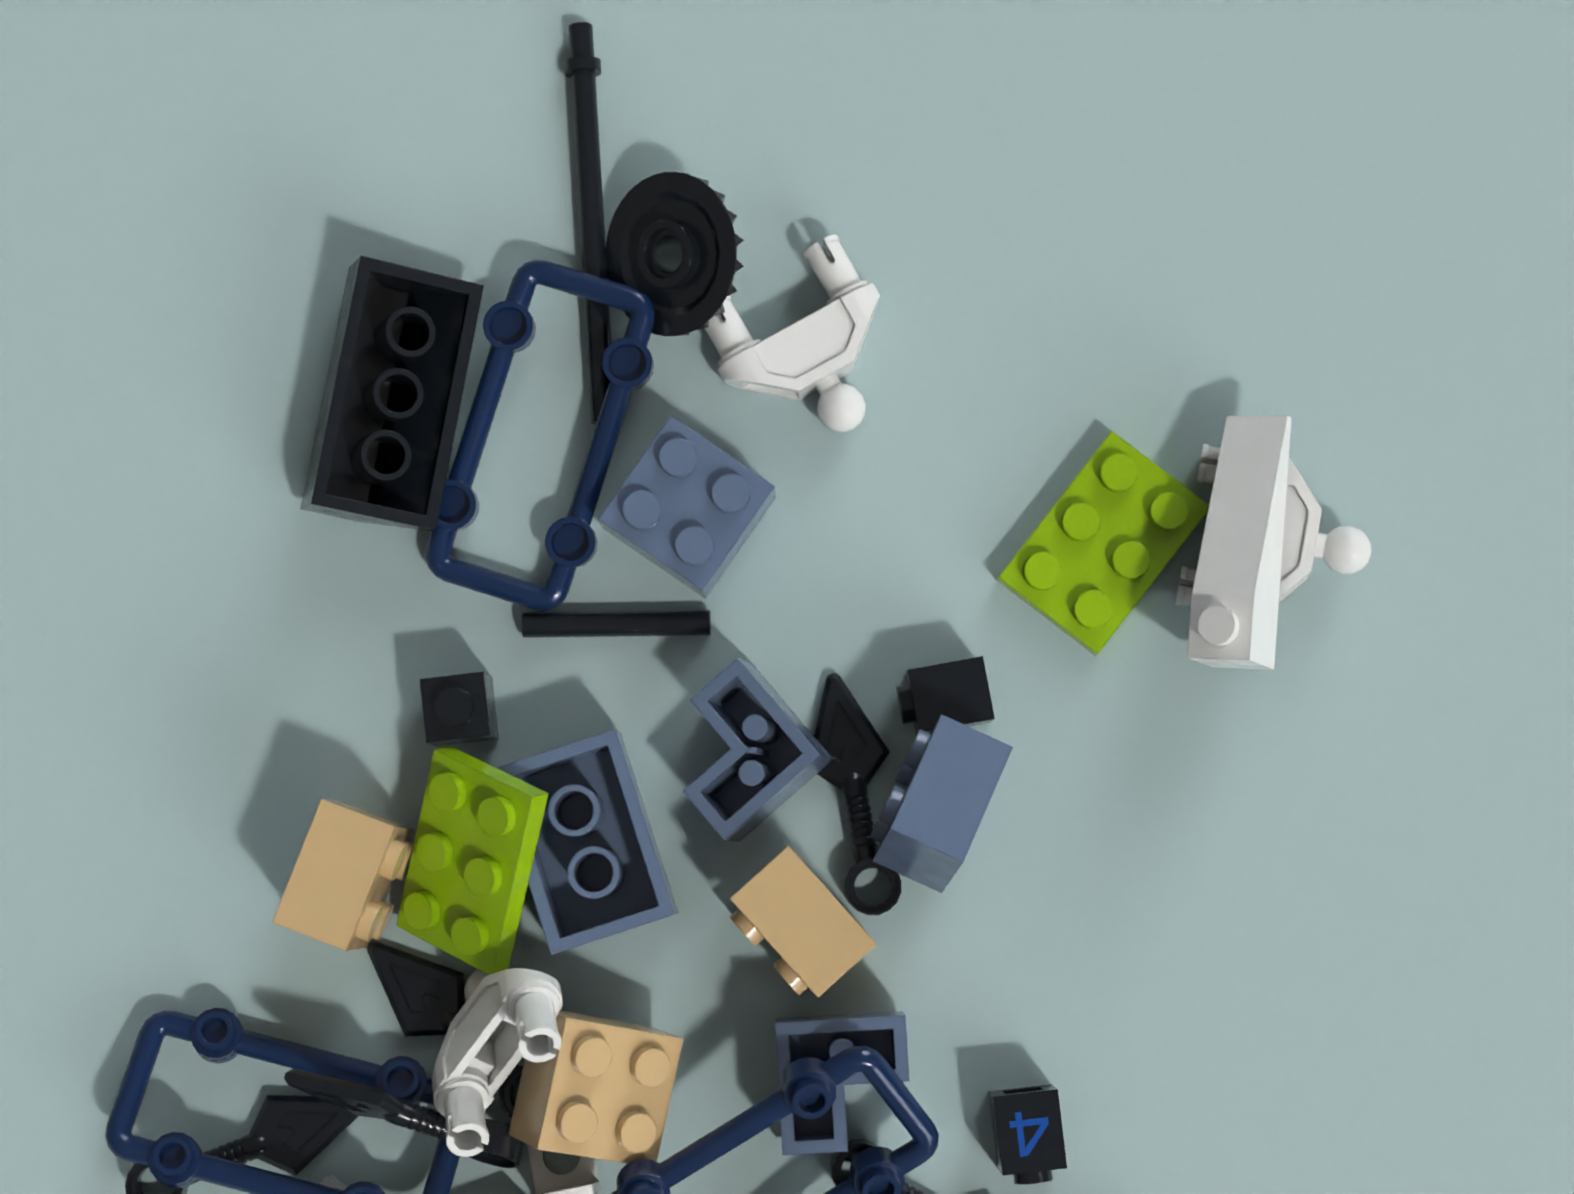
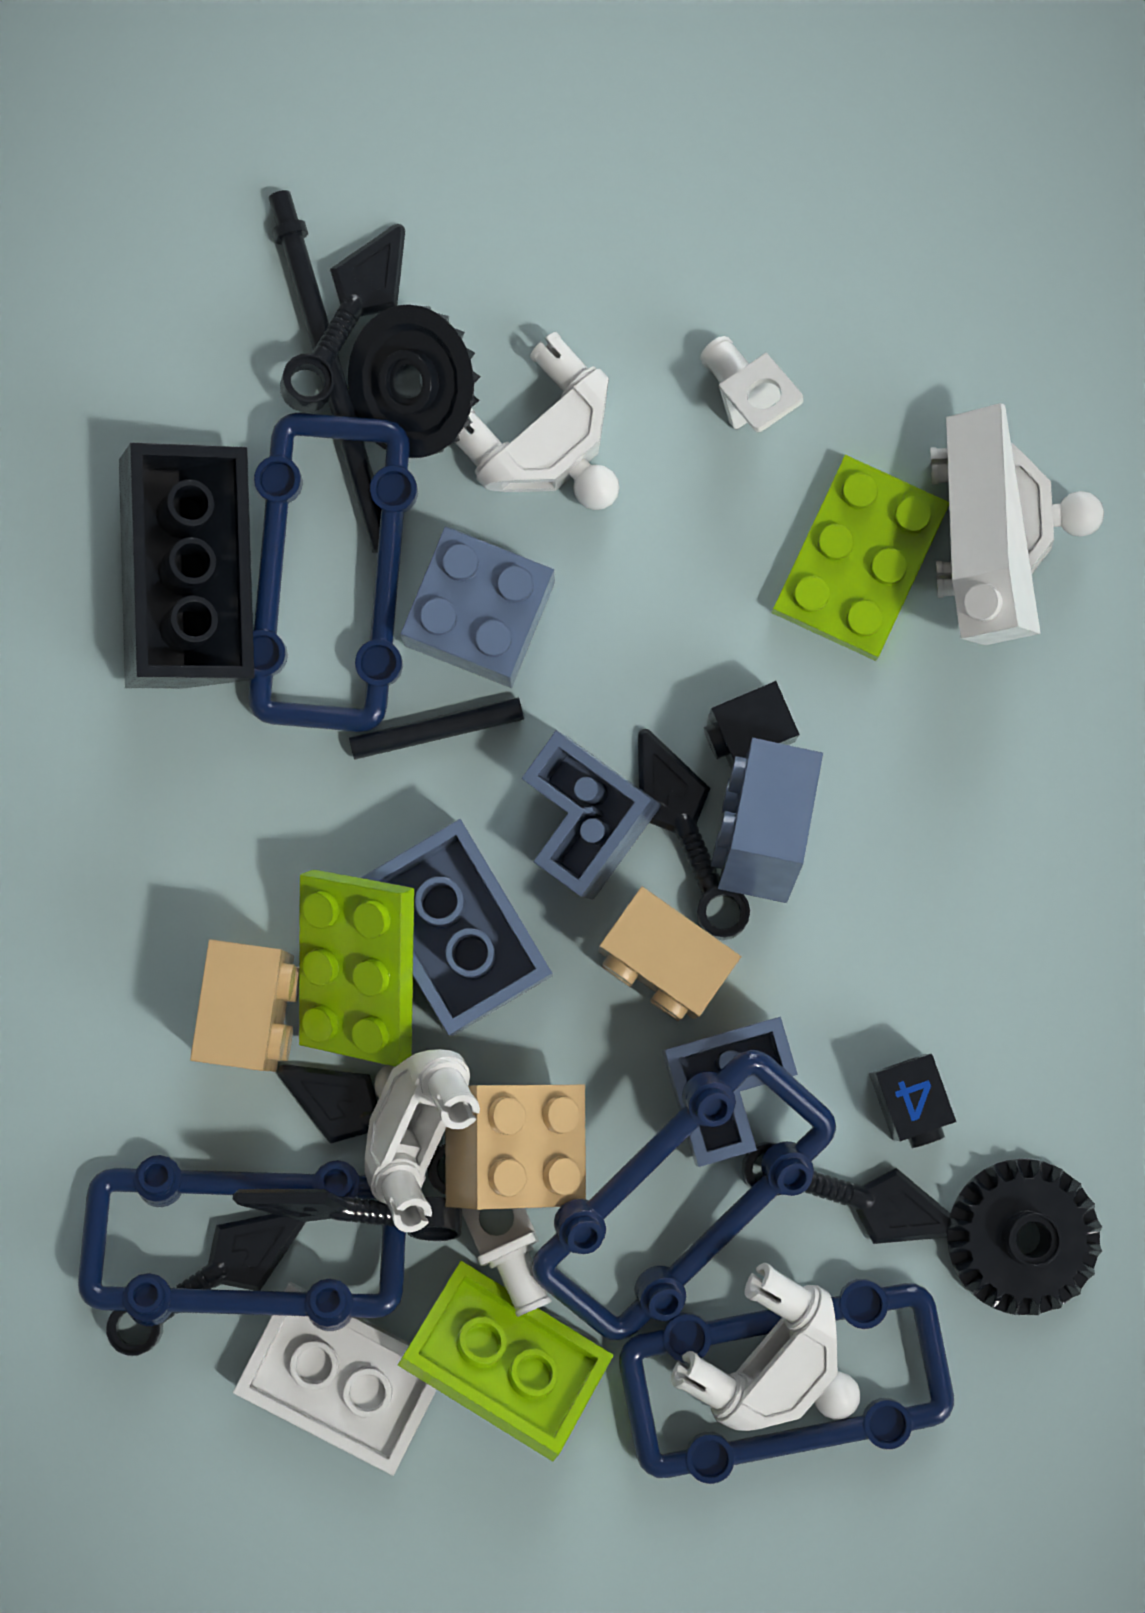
camera: 15 degrees left, 0 degrees up
(459, 709) = (312, 835): black brick -> none
(646, 142) = (365, 286): none -> black piece
(1026, 338) = (750, 388): none -> white bracket

